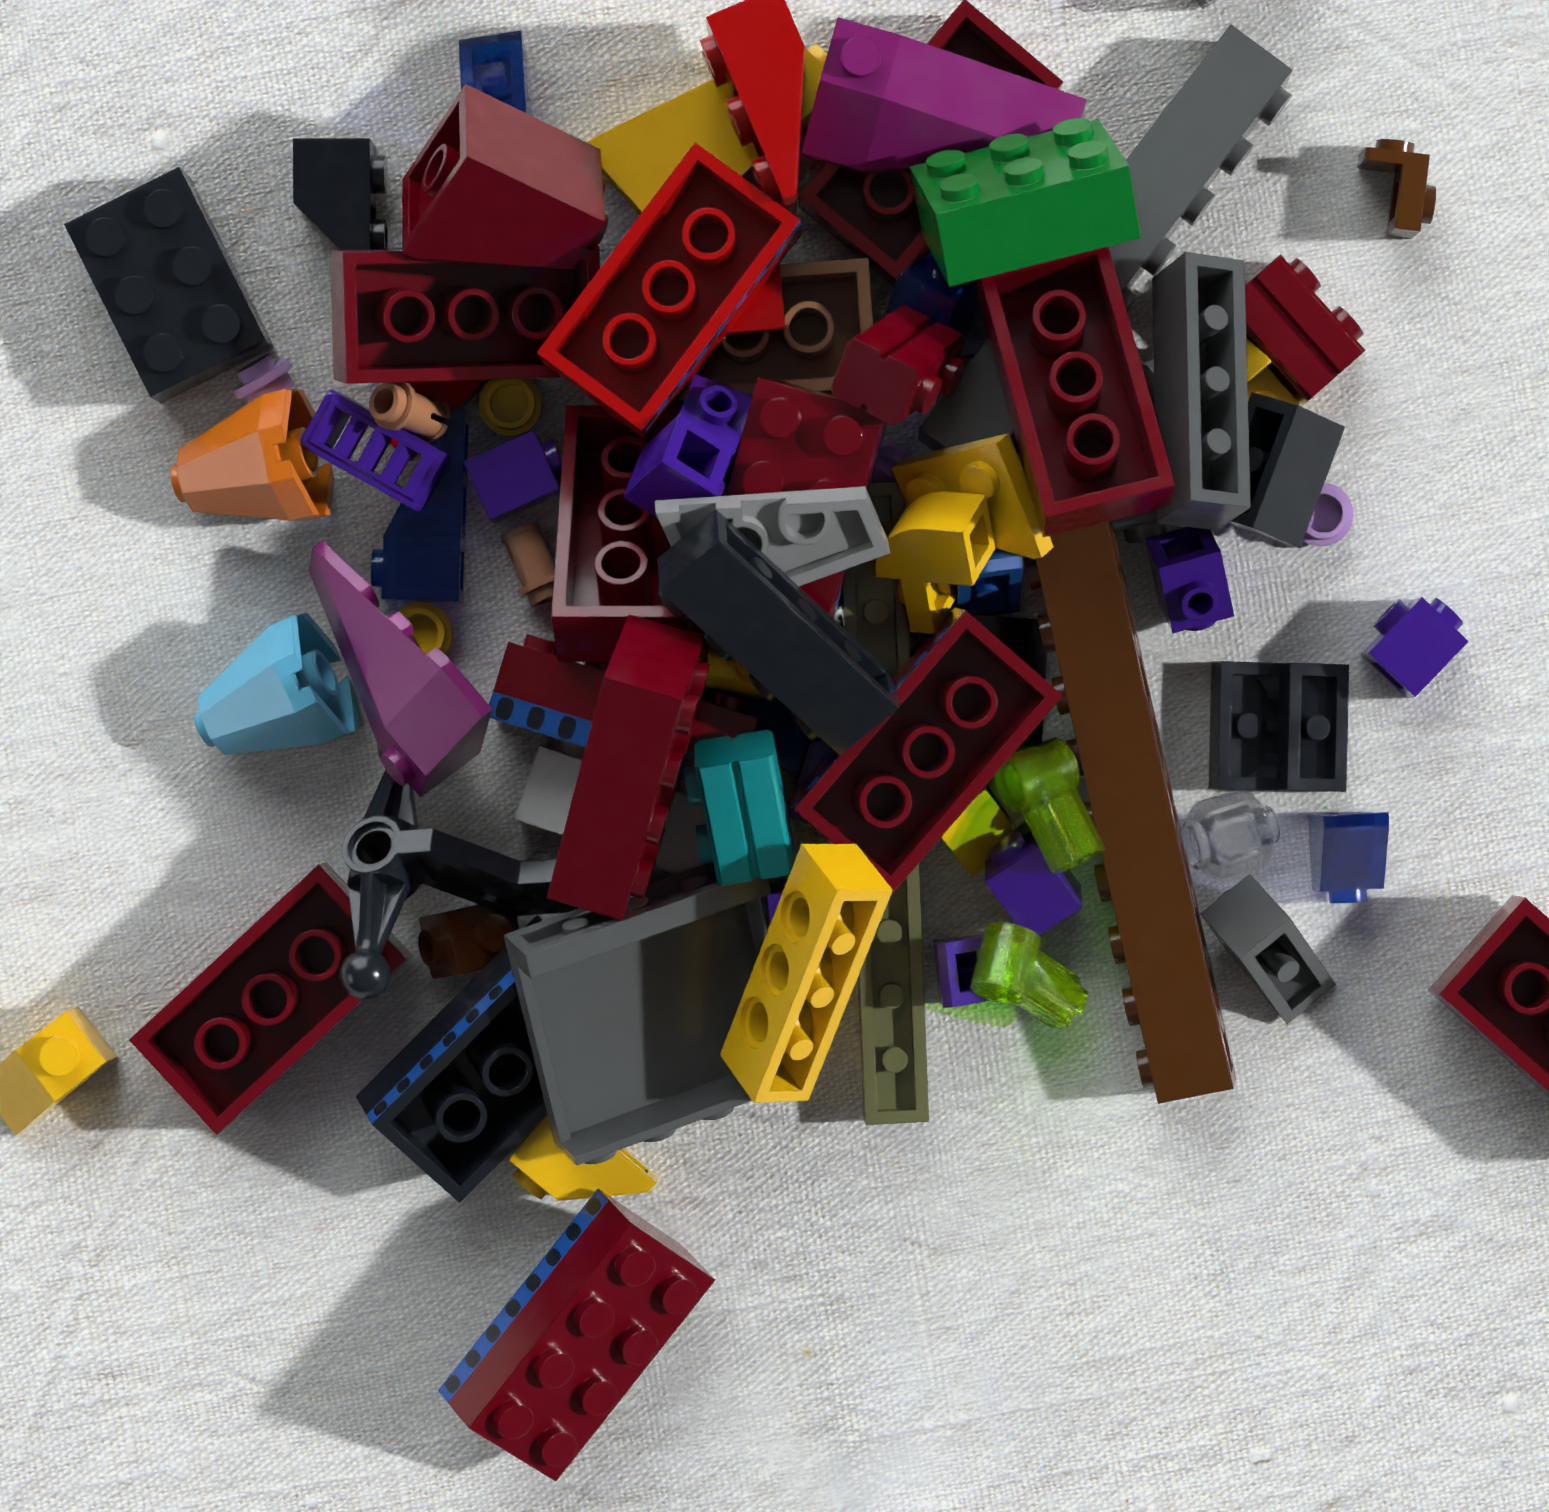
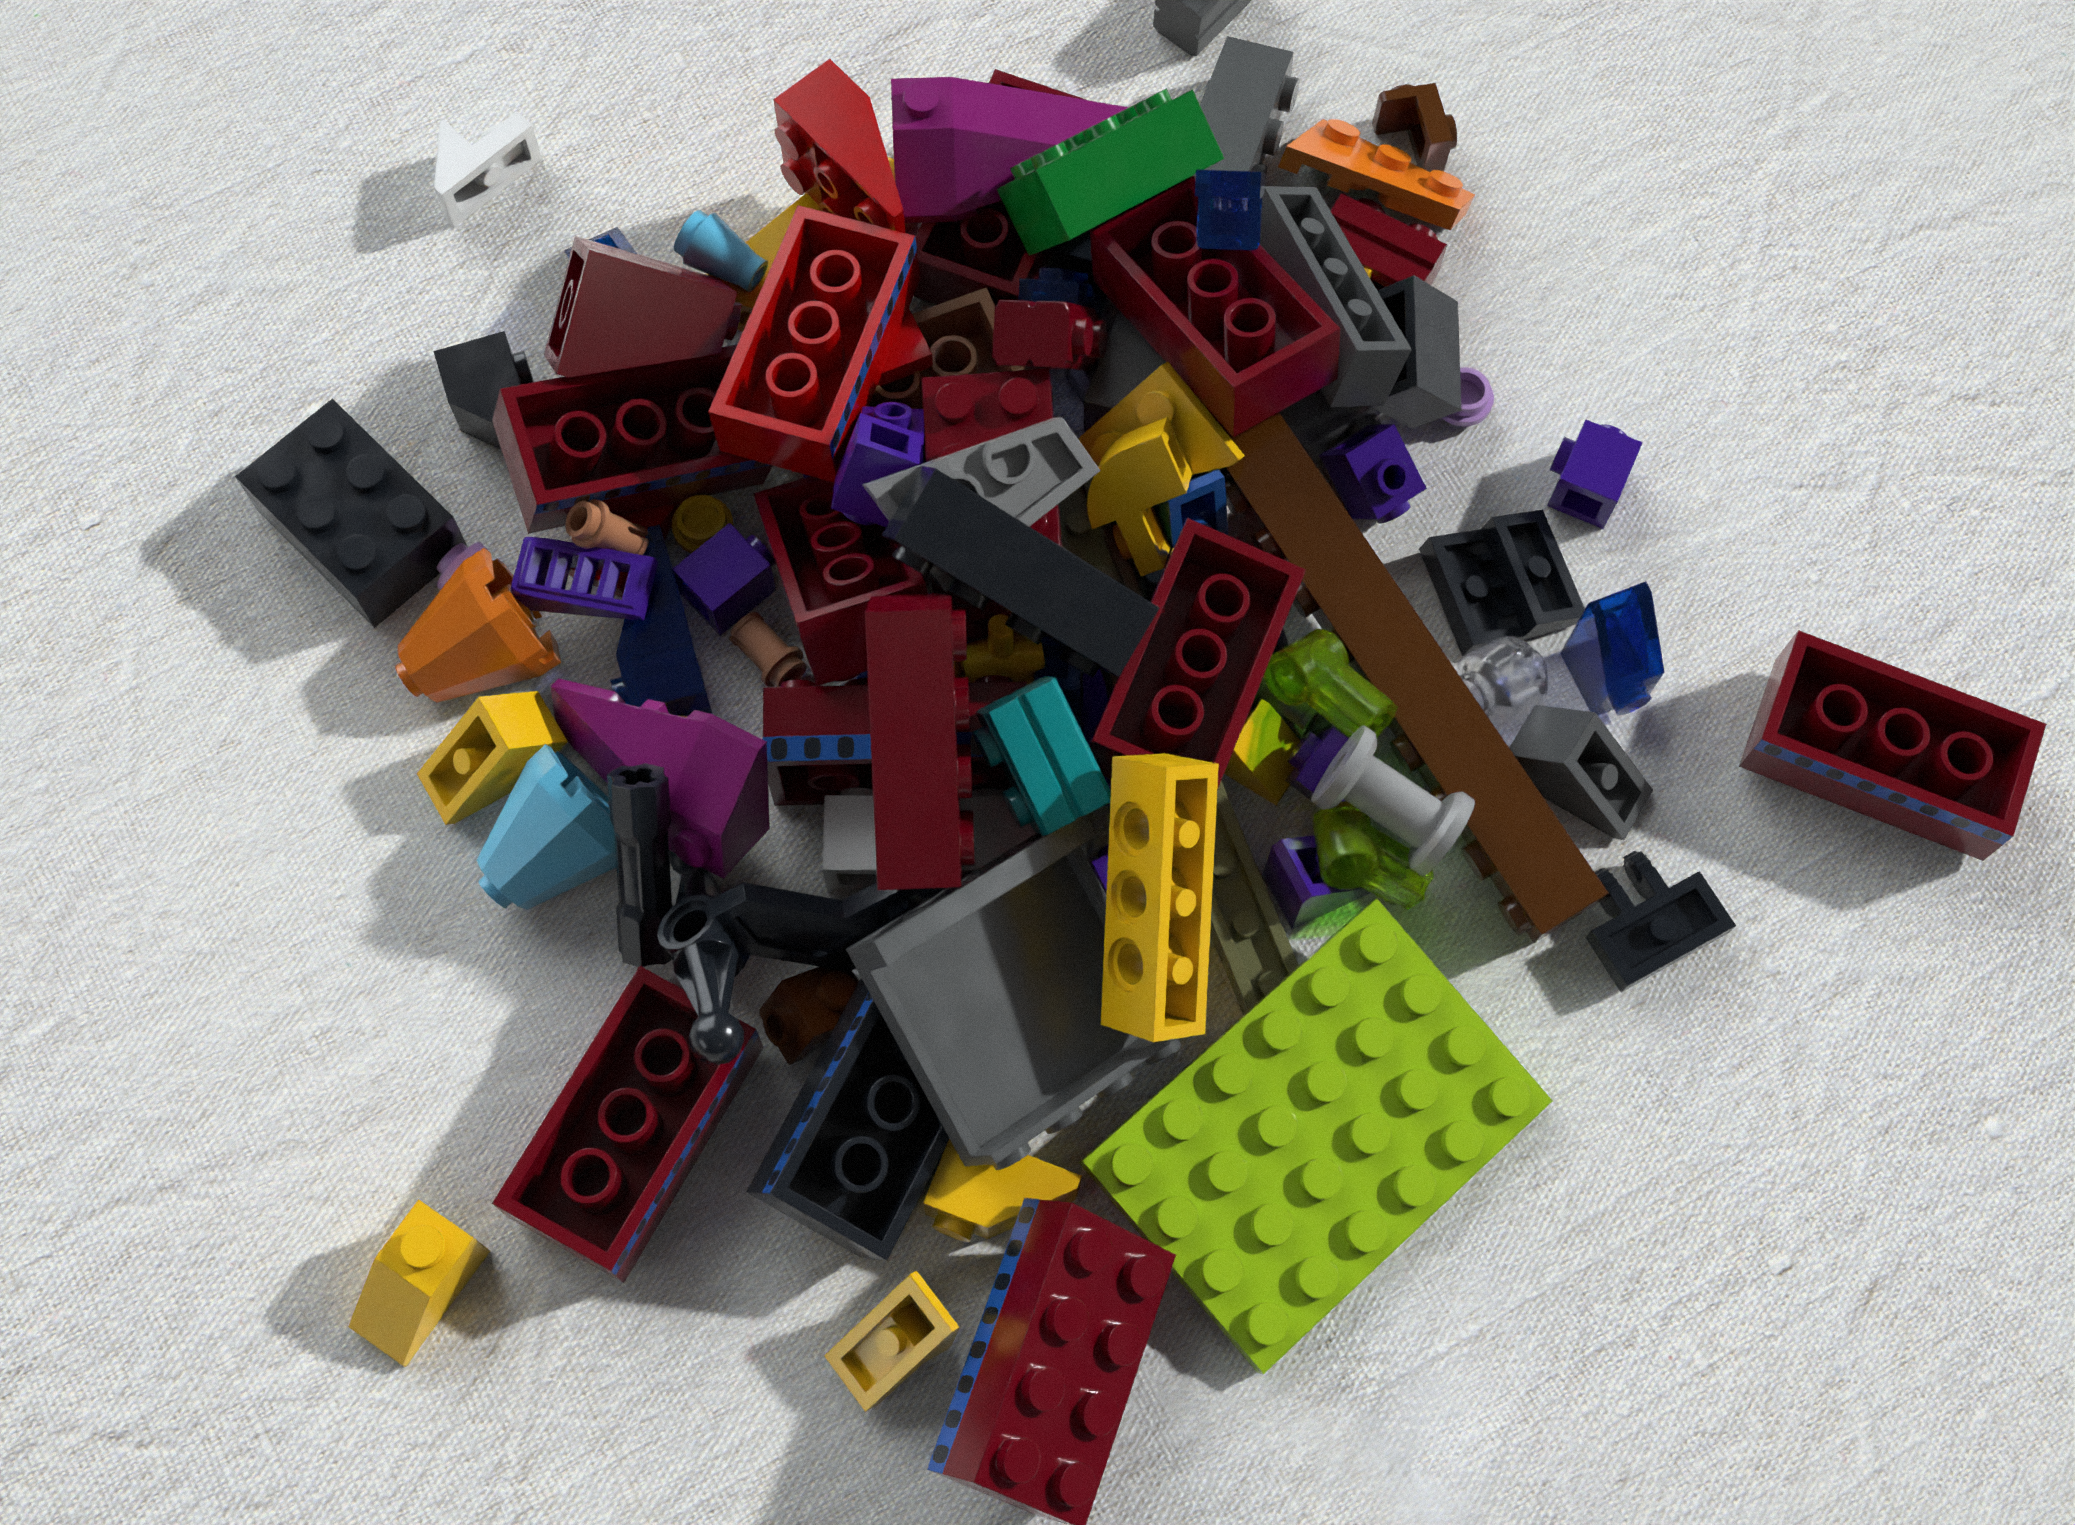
camera: 25 degrees left, 20 degrees down
(239, 588) = (488, 752): none -> yellow slope
(356, 737) = (641, 824): none -> black axle
(443, 1267) = (892, 1341): none -> yellow slope
(610, 129) = (716, 249): none -> medium azure cone
(886, 1207) = (1316, 1134): none -> lime plate
(1061, 944) = (1393, 801): none -> light grey piece
(1123, 300) = (1229, 209): none -> clear blue slope
(1279, 1124) = (1659, 930): none -> black hinge
(1326, 225) = (1360, 165): none -> orange wing

